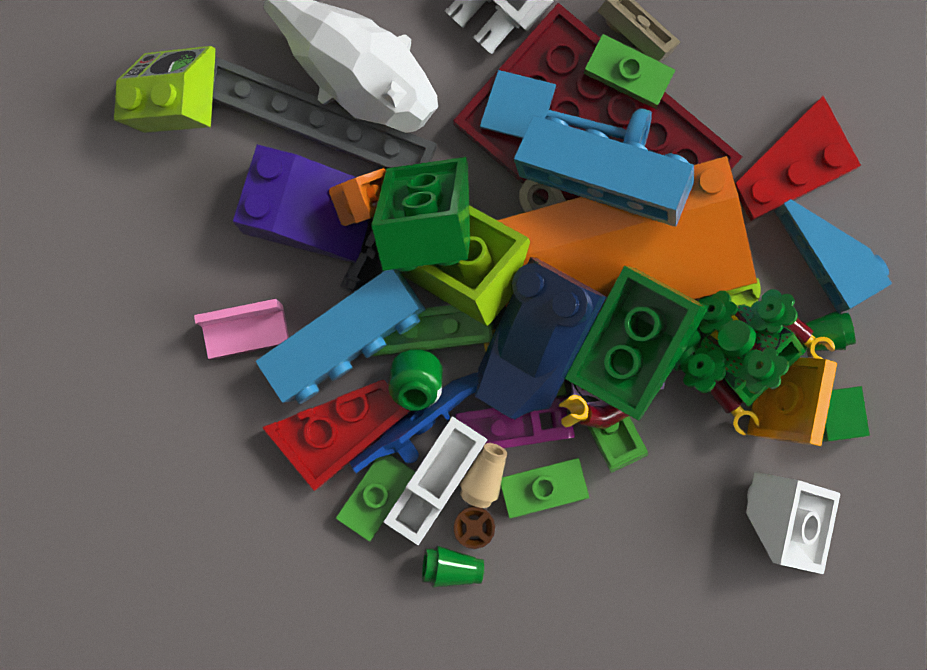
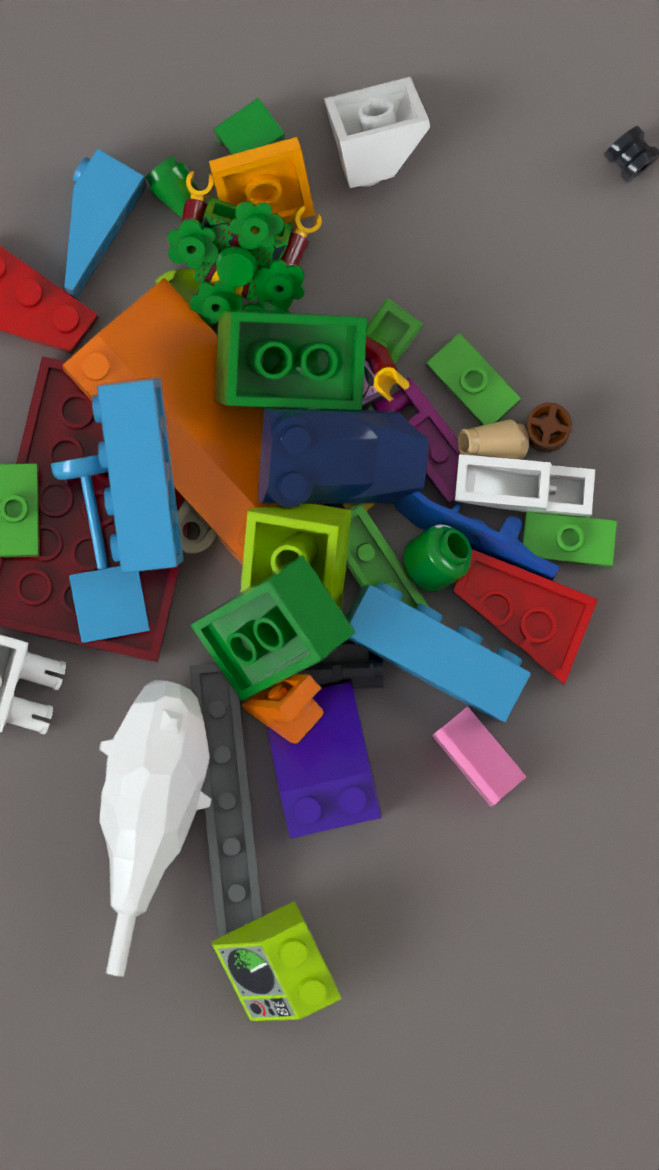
camera: 120 degrees left, 0 degrees up
(451, 568) = (599, 430): green cone -> none

